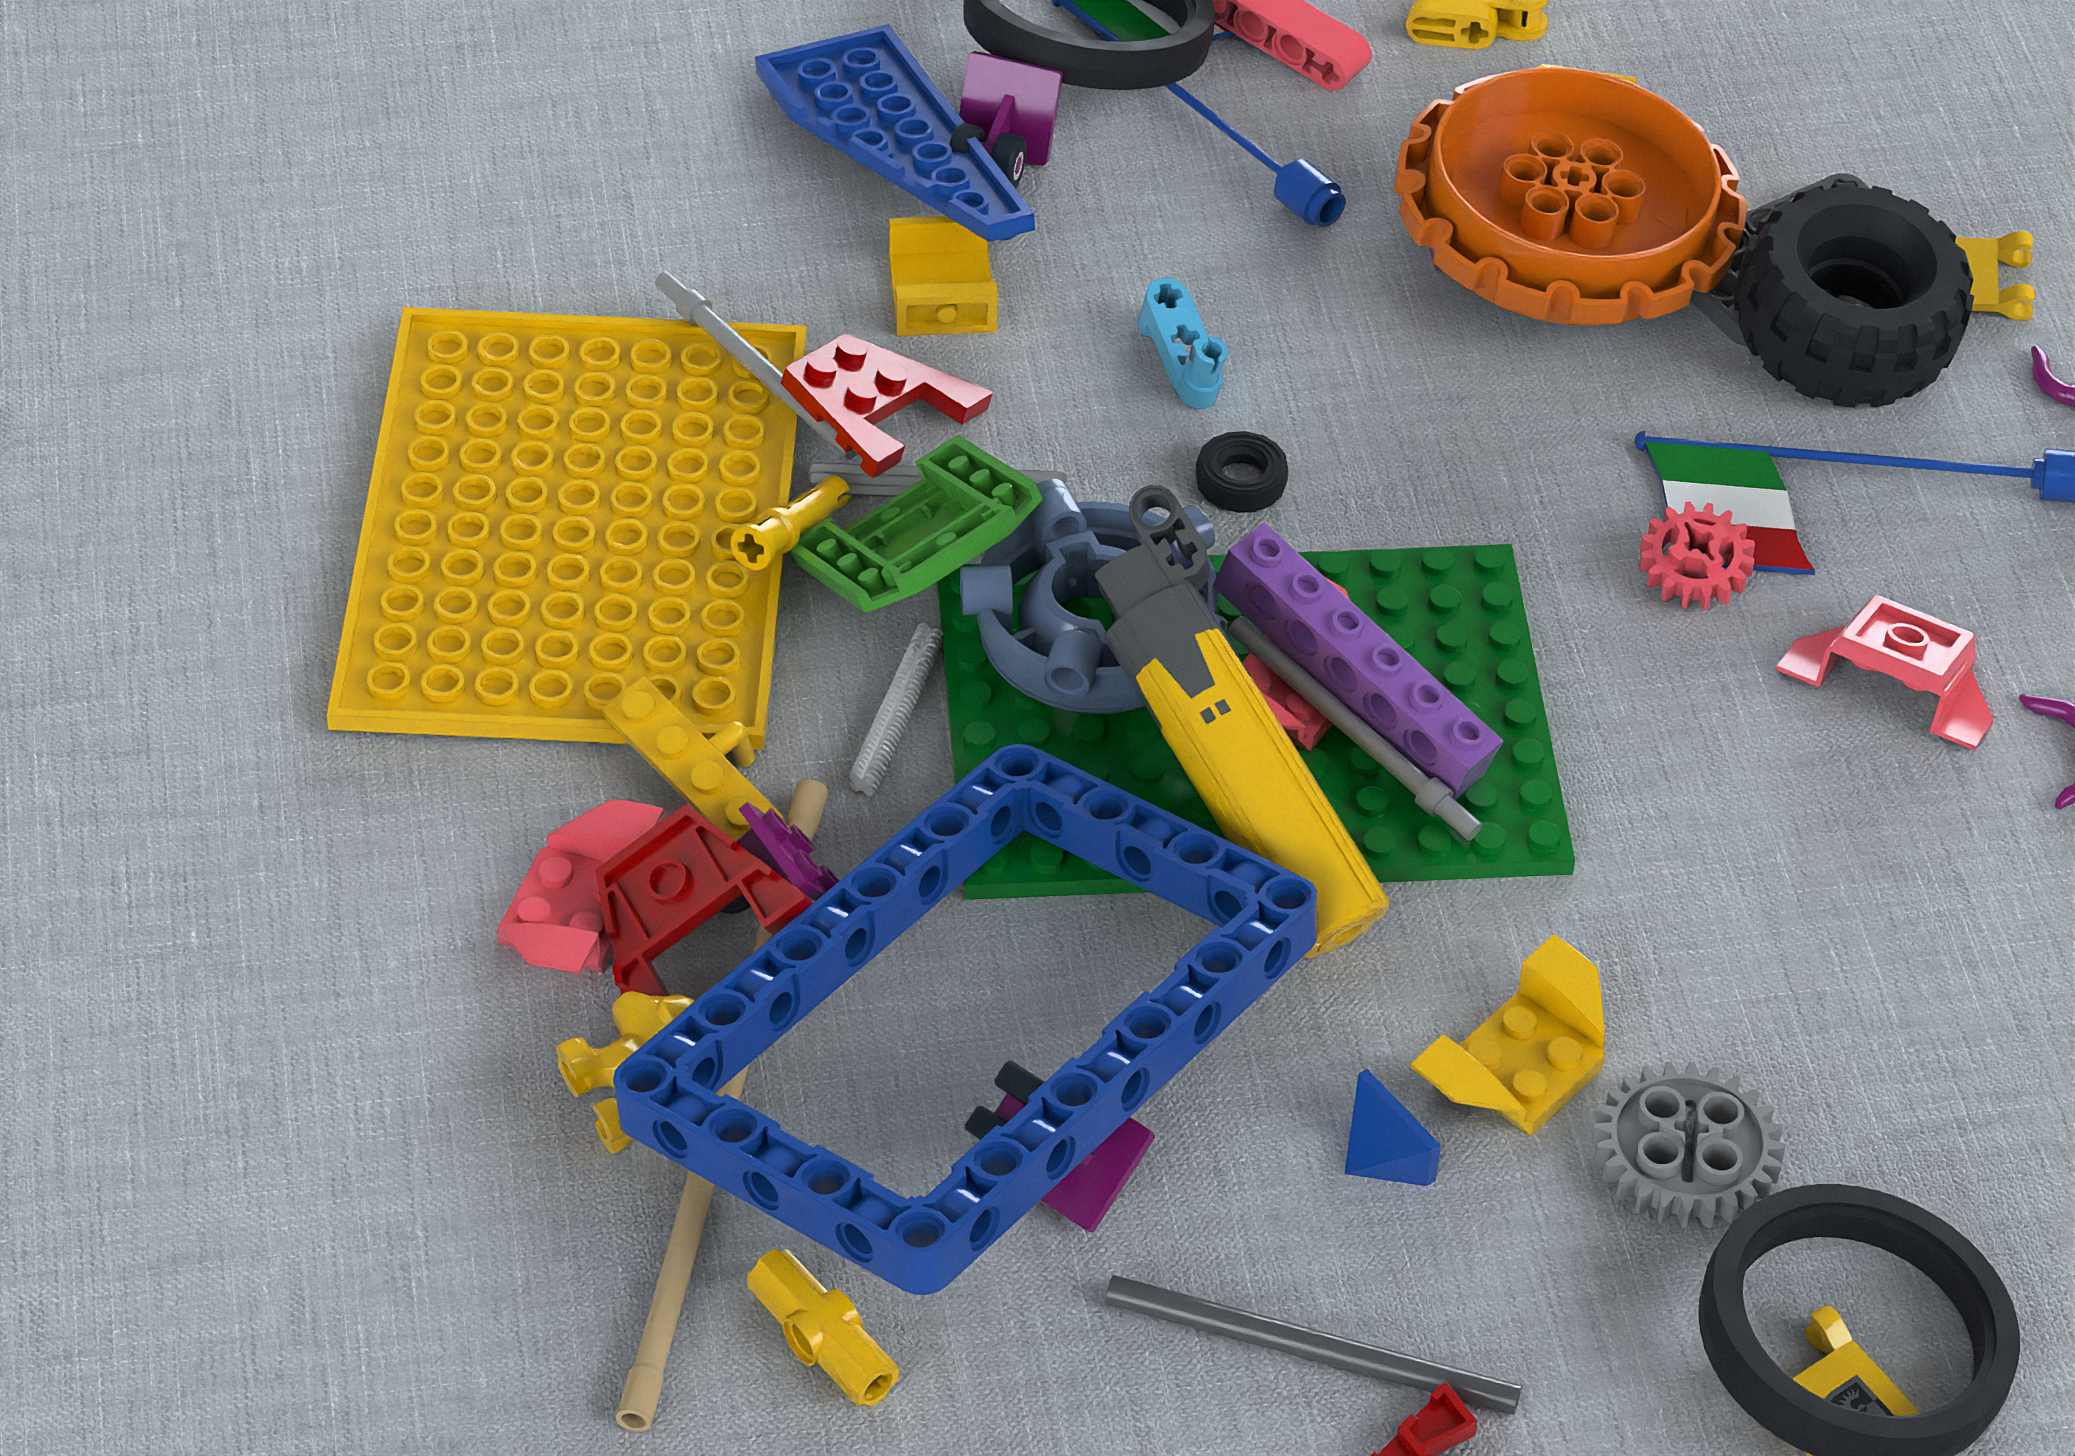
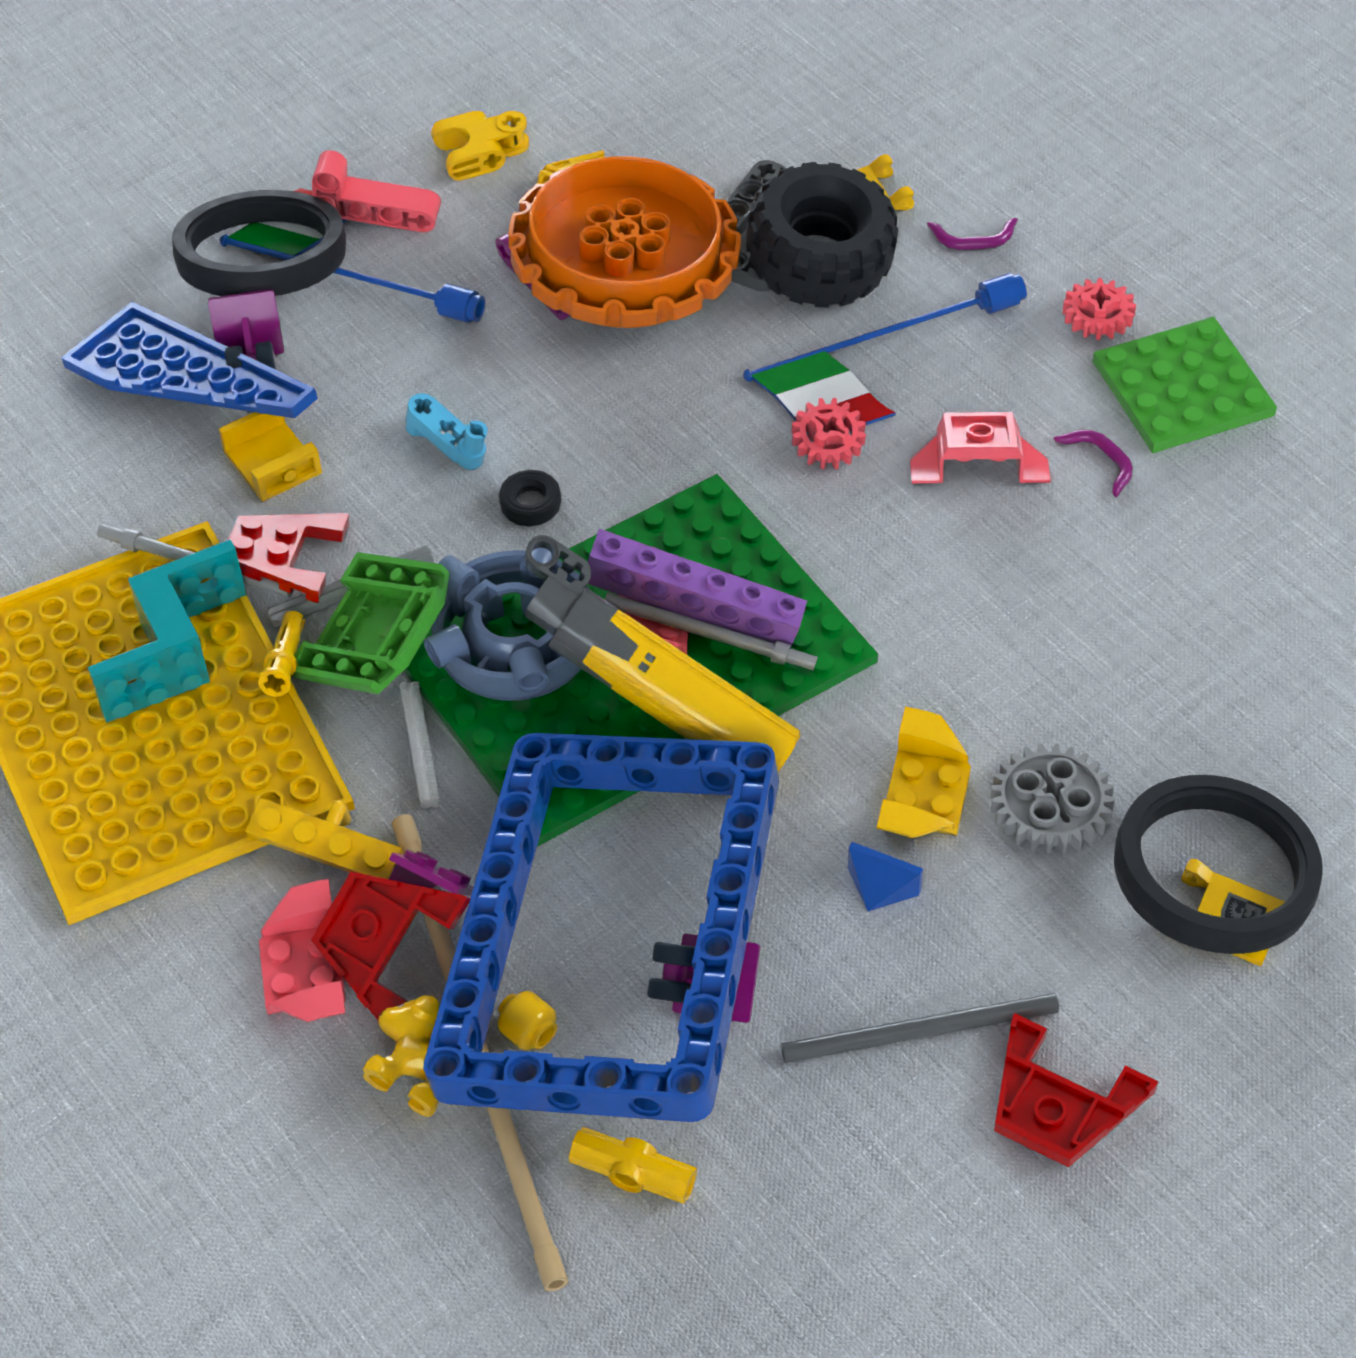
camera: 25 degrees left, 5 degrees up
(645, 463) = (174, 656): none -> teal bracket
(804, 1093) = (527, 1020): none -> yellow head

